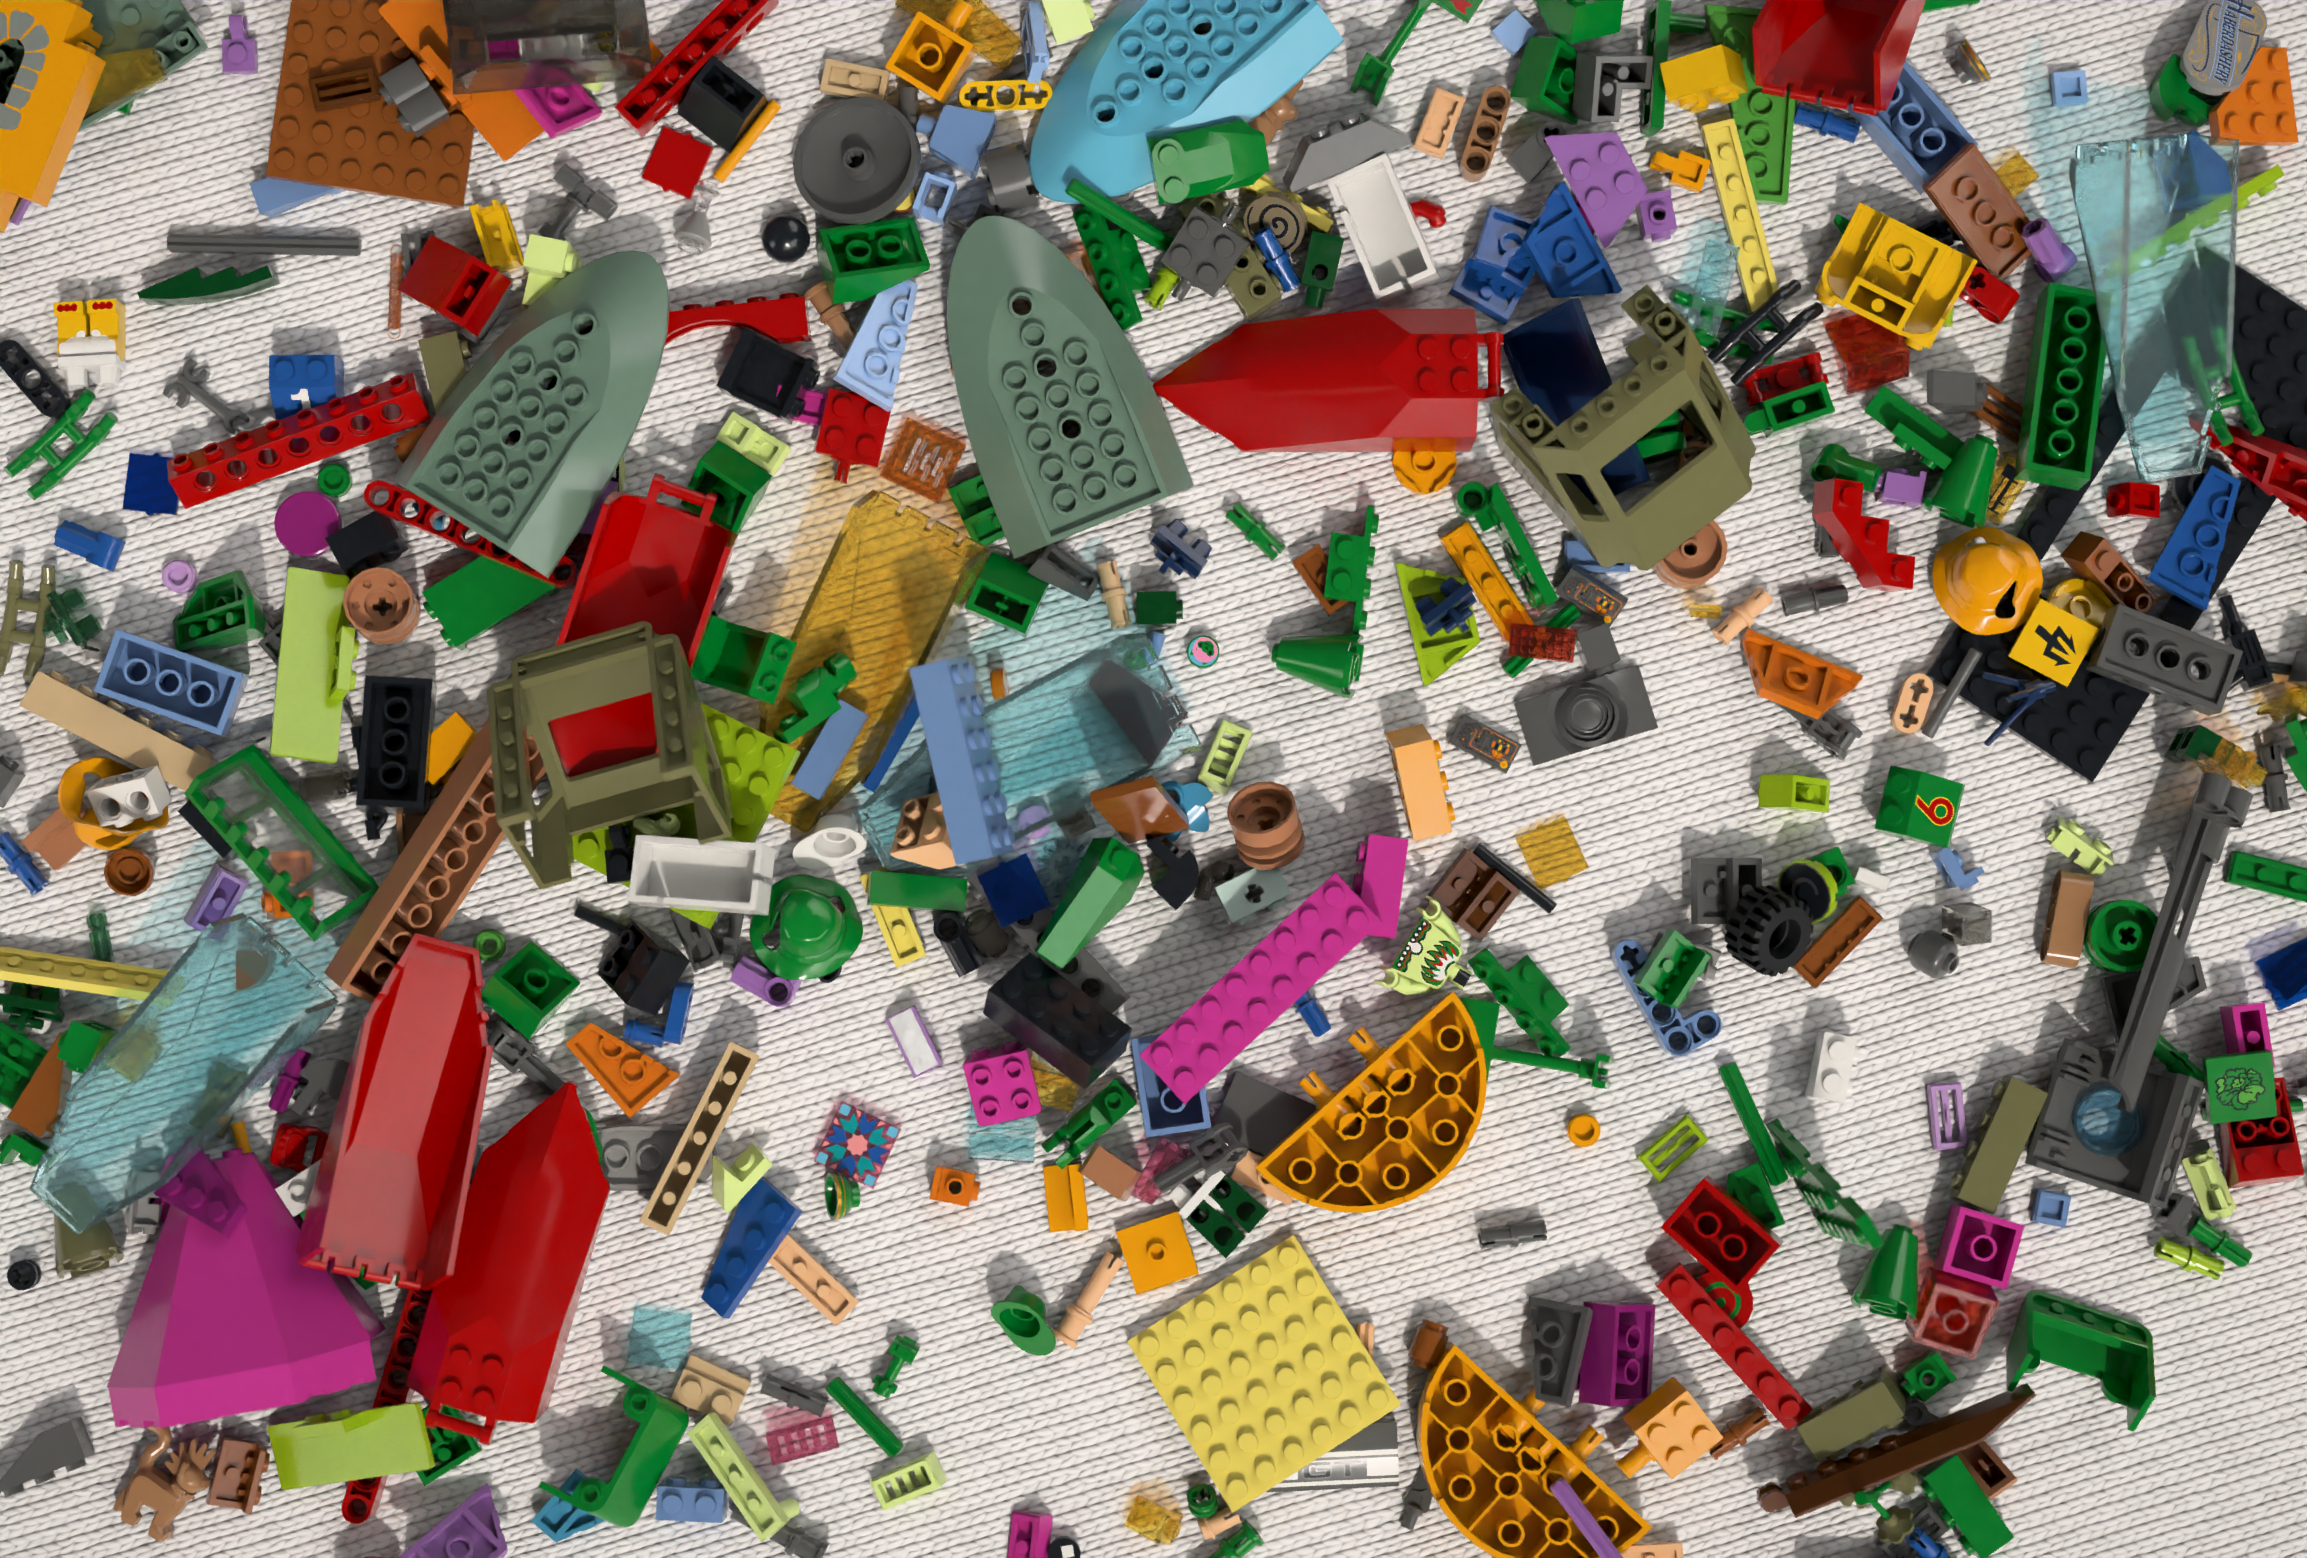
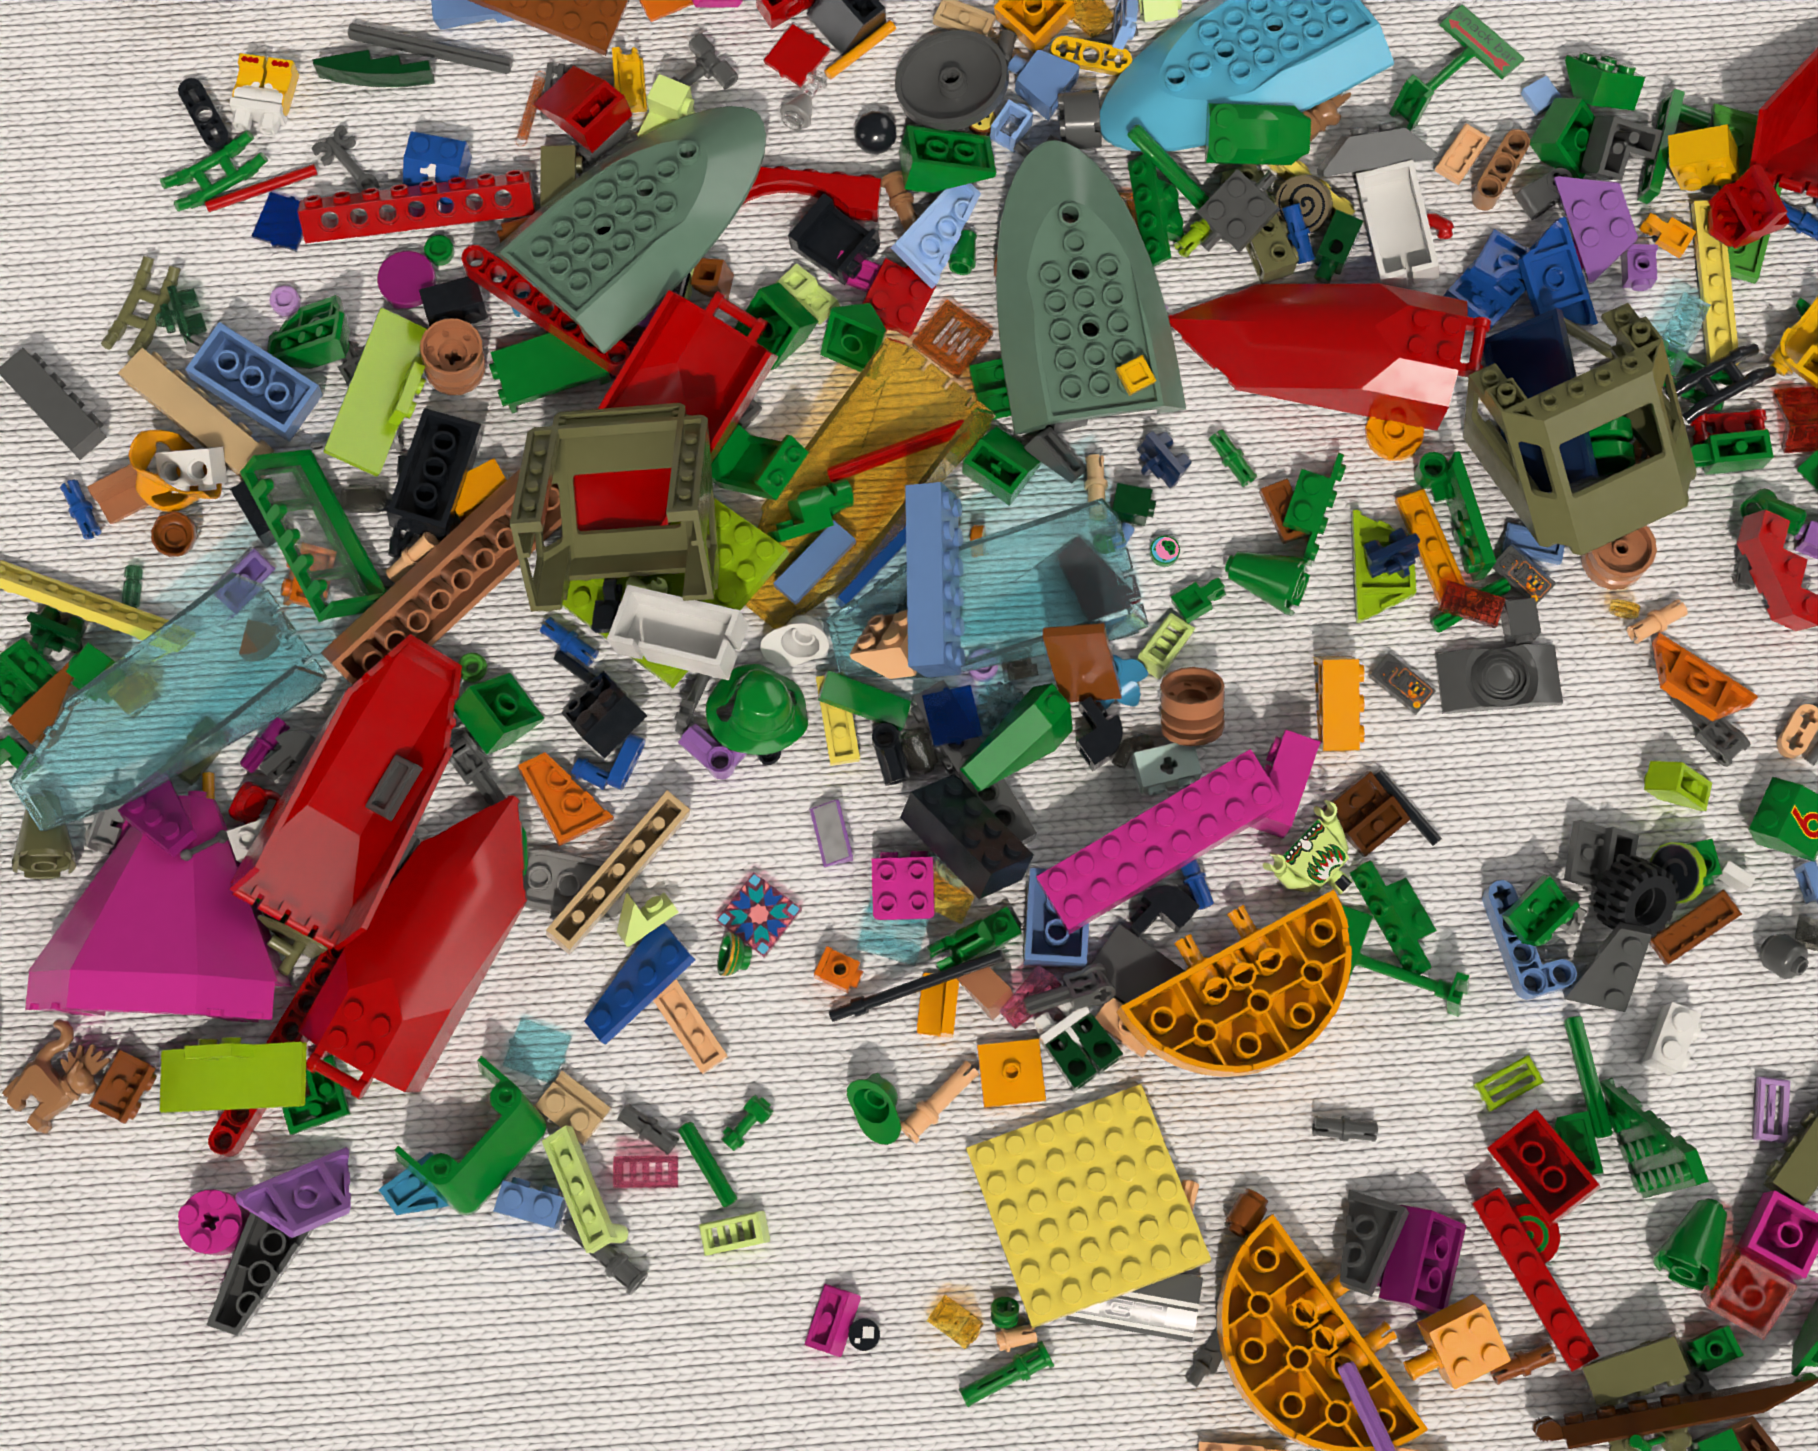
camera: 15 degrees right, 10 degrees down
(95, 547) = (220, 261): blue piece -> none
(118, 451) = (261, 188): none -> red bar
(270, 1196) = (221, 837): none -> dark grey hinge
(376, 1300) = (290, 944): none -> olive shield
(394, 841) = (411, 556): none -> light nougat pin
(439, 1100) = (393, 787): none -> dark grey tile
(589, 895) = (569, 641): none -> blue pin
(646, 451) = (712, 276): none -> dark orange brick
(698, 942) = (657, 701): dark grey hinge -> none
(816, 486) = (853, 335): none -> green slope
(890, 610) = (893, 451): none -> red axle
(914, 361) = (963, 254): none -> green cone
(986, 1217) = (861, 1005): none -> black bar
(1131, 471) = (1135, 375): none -> yellow tile
(1245, 703) = (1195, 601): none -> green plate
(1283, 1039) = (1168, 904): none -> black brick
(1552, 853) = (1445, 793): clear yellow piece -> none
(1583, 1130) = (1428, 1048): light orange tile -> none
(1603, 309) = (1588, 339): none -> olive bar
(1759, 1011) = (1614, 970): none -> dark grey wing
(1760, 131) = (1746, 210): none -> red piece
(1814, 600) = (1724, 621): dark grey axle -> none

